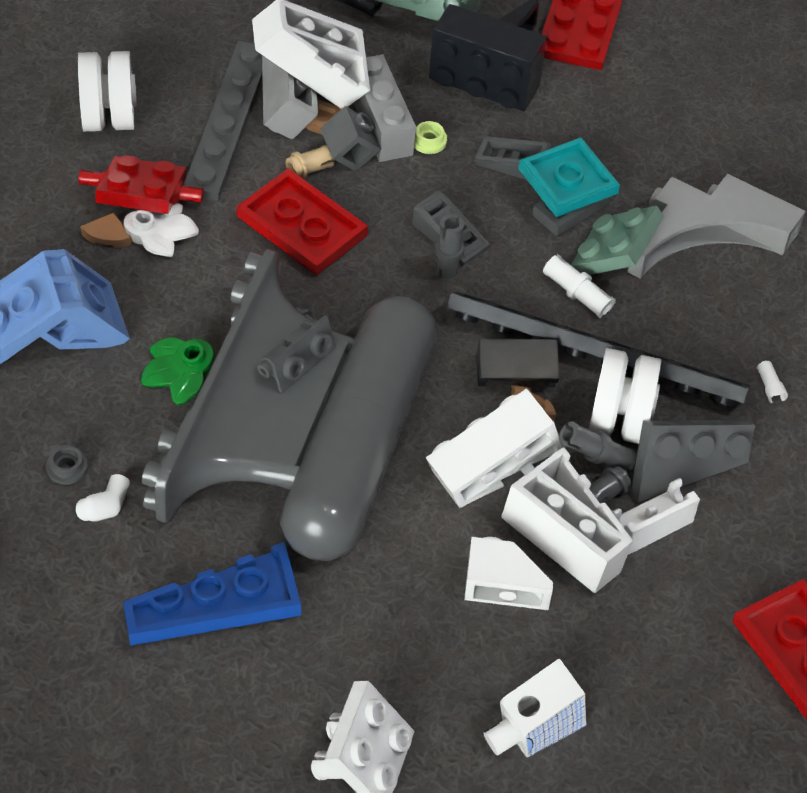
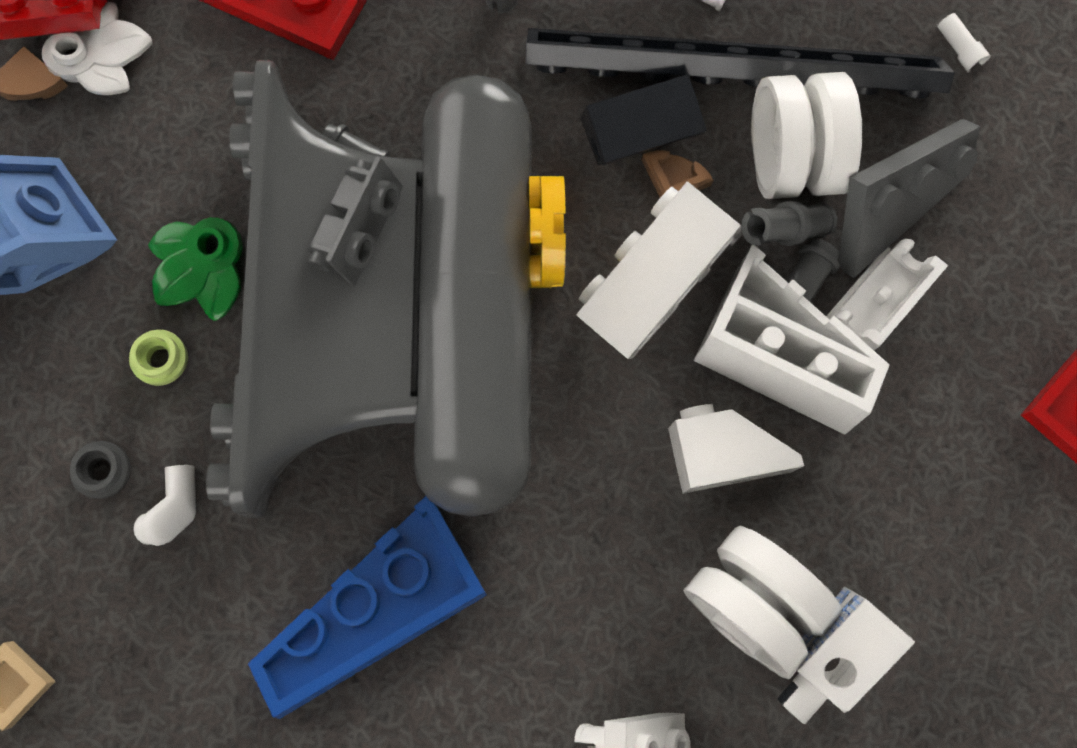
camera: 20 degrees left, 25 degrees up
(131, 402) = (143, 349): none -> yellowish green plate
(427, 394) = (547, 231): none -> yellow plate
(489, 656) = (763, 601): none -> white wheel

